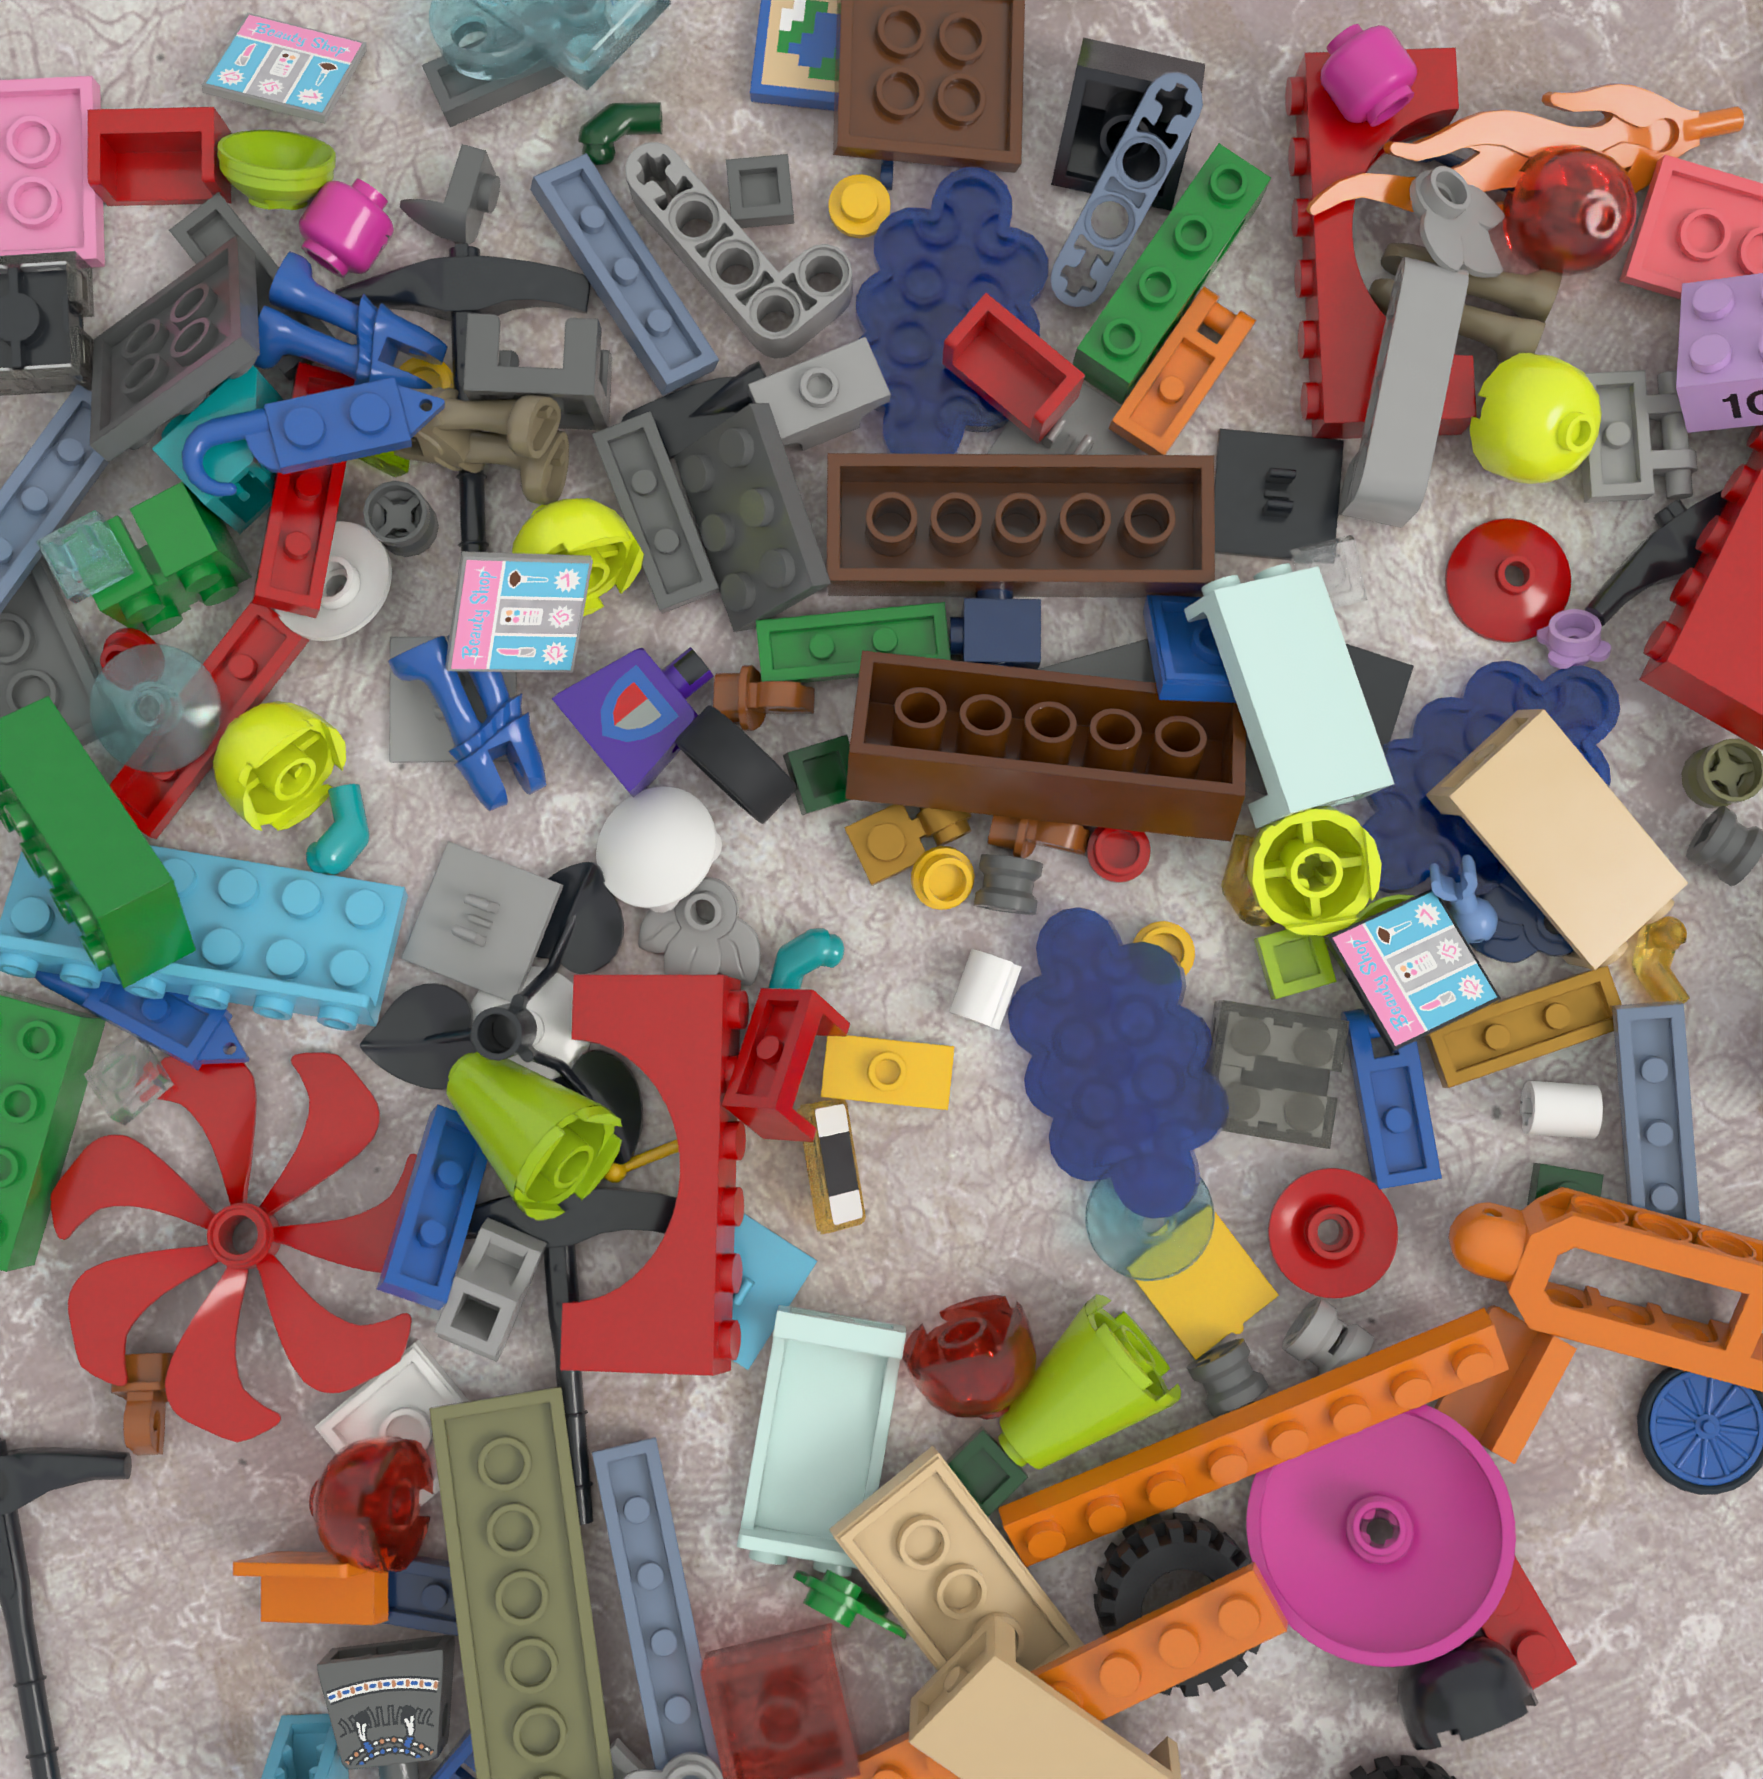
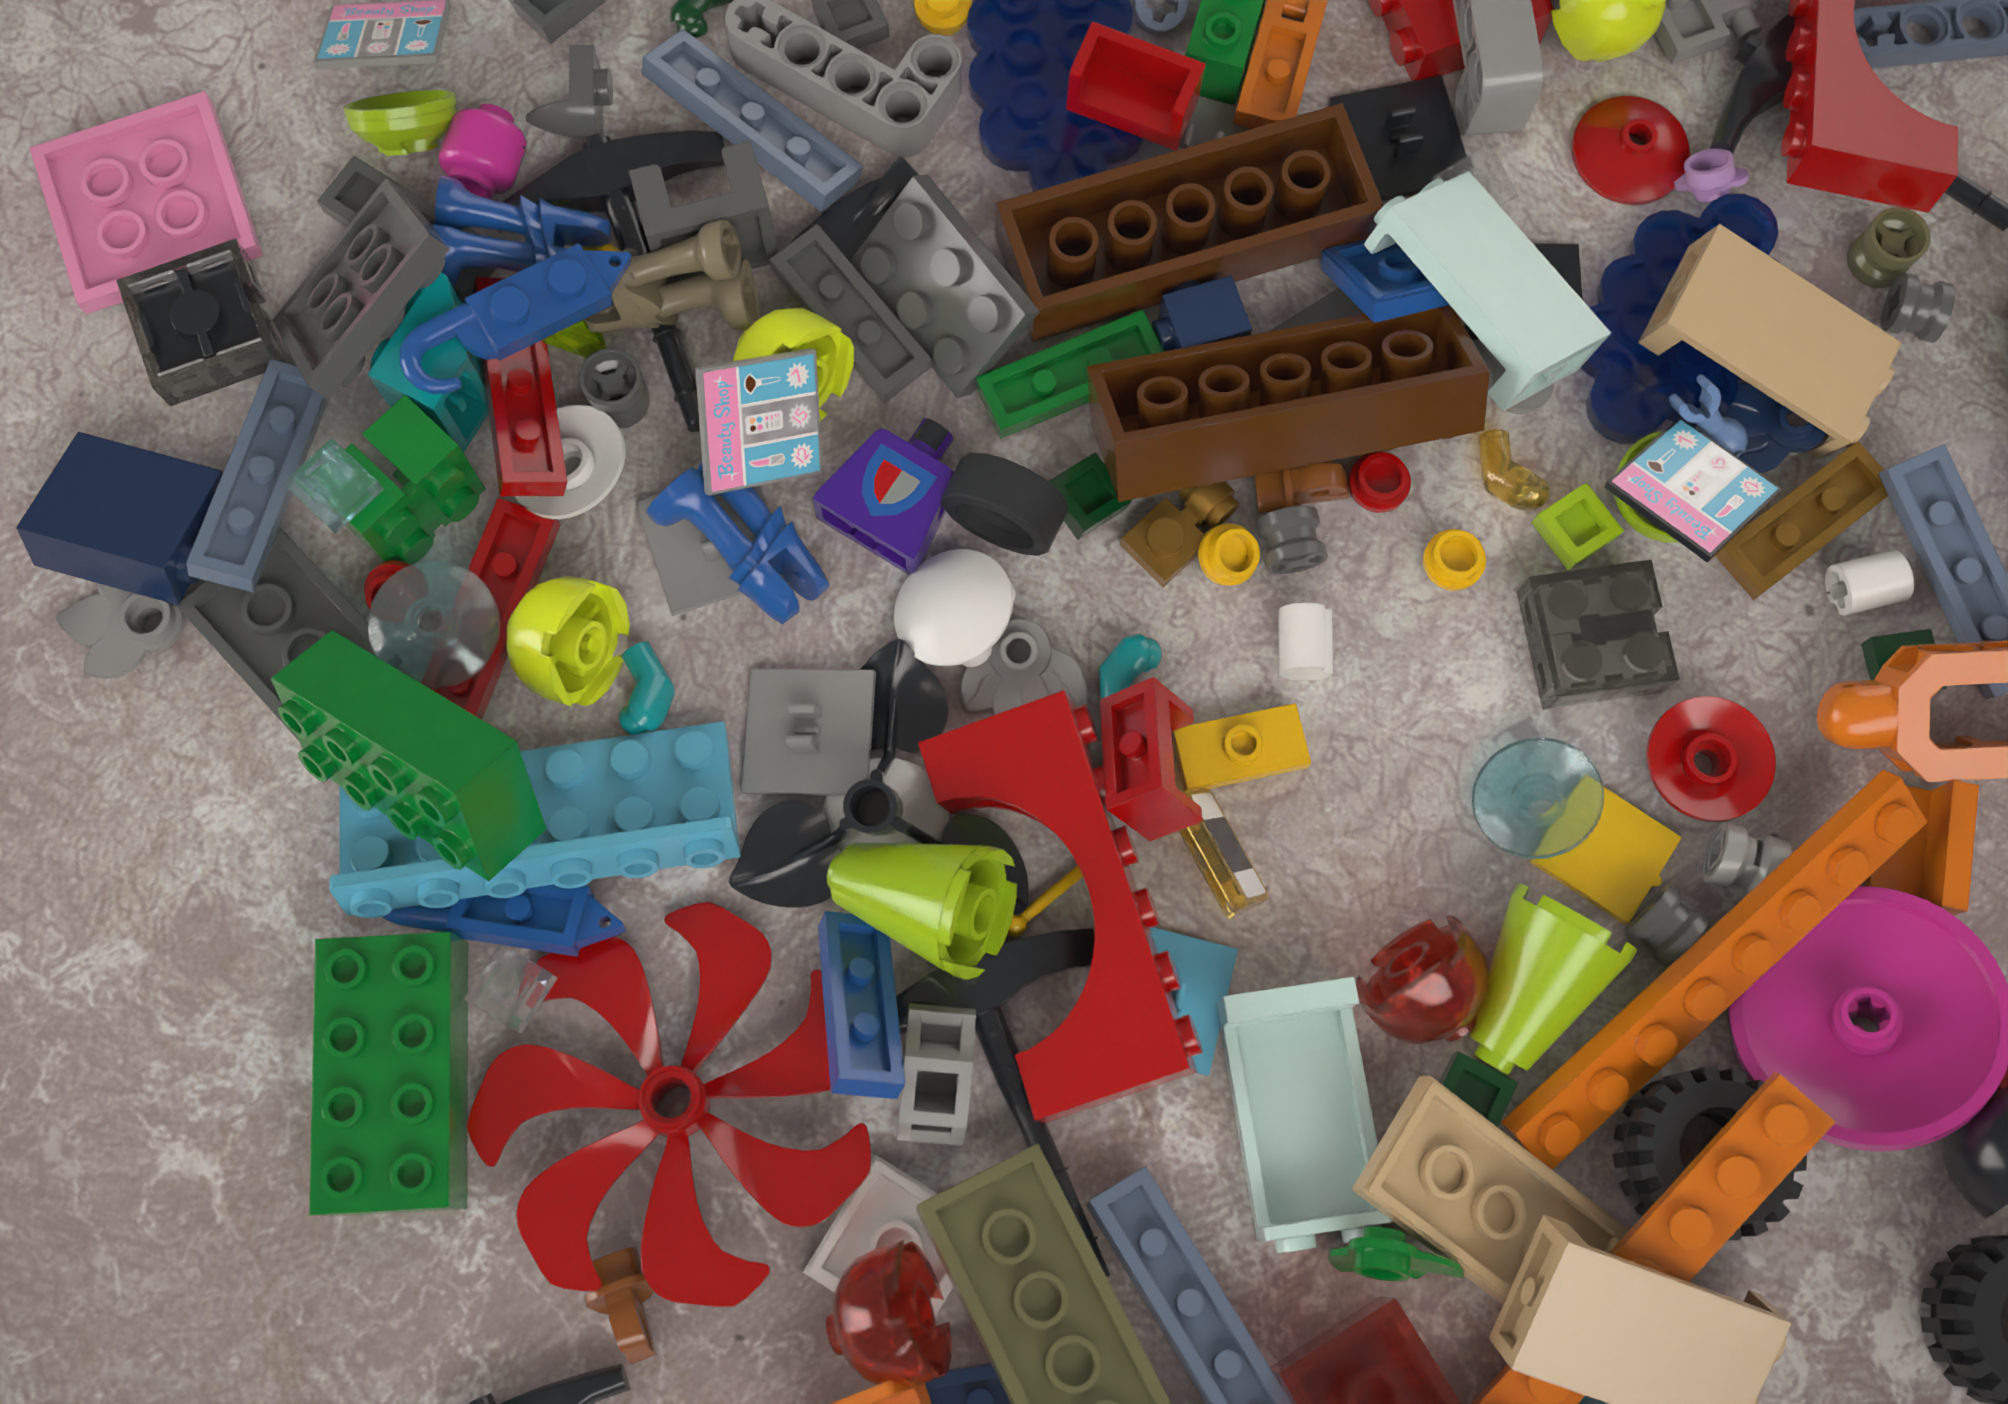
camera: 20 degrees left, 10 degrees down
(156, 155) = (286, 141): red panel -> none
(748, 699) = (1014, 441): dark orange piece -> none
(823, 394) = (974, 159): light grey brick -> none
(1118, 1062) = (1456, 665): clear blue plate -> none
(1314, 870) = (1568, 430): neon yellow cylinder -> none
(1391, 1108) = (1716, 625): blue plate -> none
(1654, 958) = (1893, 424): clear yellow arm -> none

